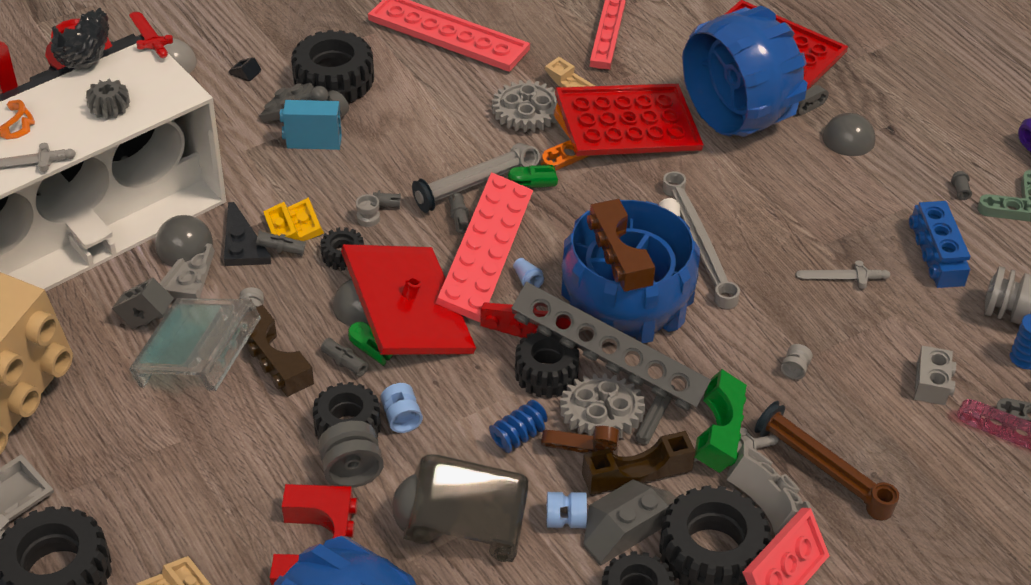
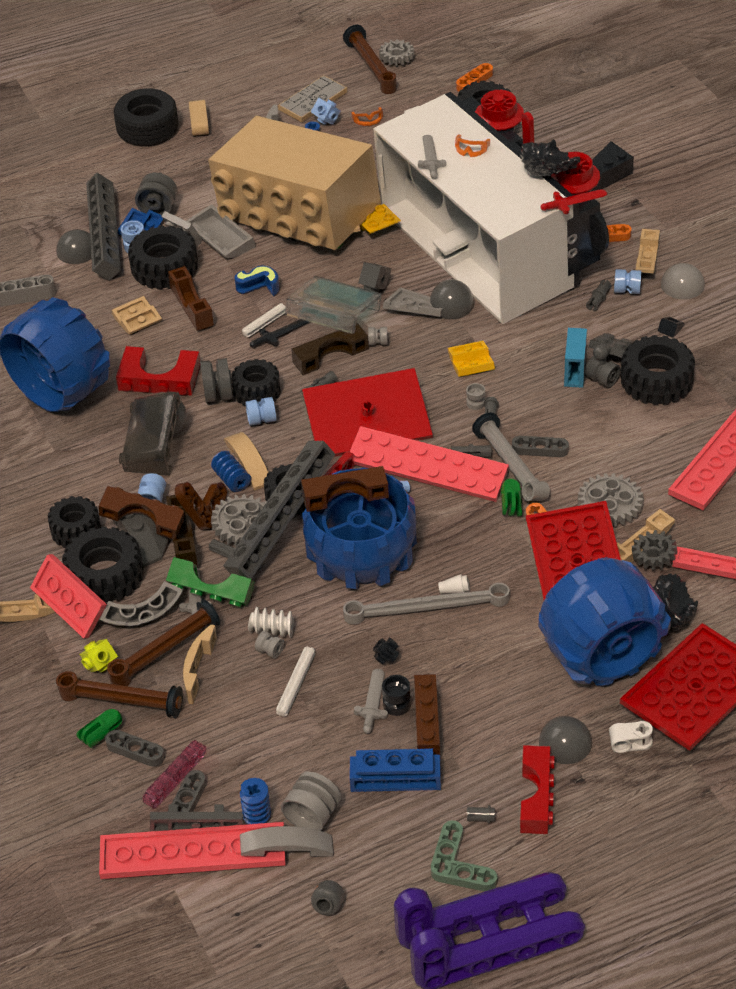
camera: 100 degrees right, 0 degrees up
(107, 98) = (487, 183): dark grey gear -> none
(111, 441) = (257, 278): none -> blue animal
(128, 528) = (196, 309): none -> reddish brown arch
(203, 431) = (264, 320): none -> white axle
(235, 422) = (271, 337): none -> black sword
(241, 241) = (454, 331): black wing -> none
(280, 243) = (441, 348): dark grey pin -> none
(336, 240) = (436, 375): black tyre -> none
(441, 154) = (554, 451): none -> dark grey beam
(475, 418) = (248, 457): none -> tan slope
(600, 71) = (654, 550): none -> dark grey gear
(633, 510) = (119, 503): none -> reddish brown arch
(666, 61) = (676, 600): none -> black hair
(765, 361) = (271, 622): none -> white piece
(777, 265) = (386, 651): none -> black gear
(813, 99) = (615, 709): dark grey beam -> none
(835, 224) = (427, 712): none -> reddish brown arch
(838, 338) = (295, 681): none -> white axle
(839, 89) = (628, 737): none -> white piece
(842, 246) = (396, 695): none -> black wheel
(843, 430) = (202, 645): none -> tan slope
(856, 525) = (97, 655): none -> neon yellow brick
(914, 438) = (72, 687): none -> reddish brown piece
(934, 375) = (238, 733): light grey brick -> none
(946, 146) = (534, 810): none -> red arch
(970, 508) = (98, 728): none -> green arm
(975, 482) = (139, 755): none -> dark grey beam

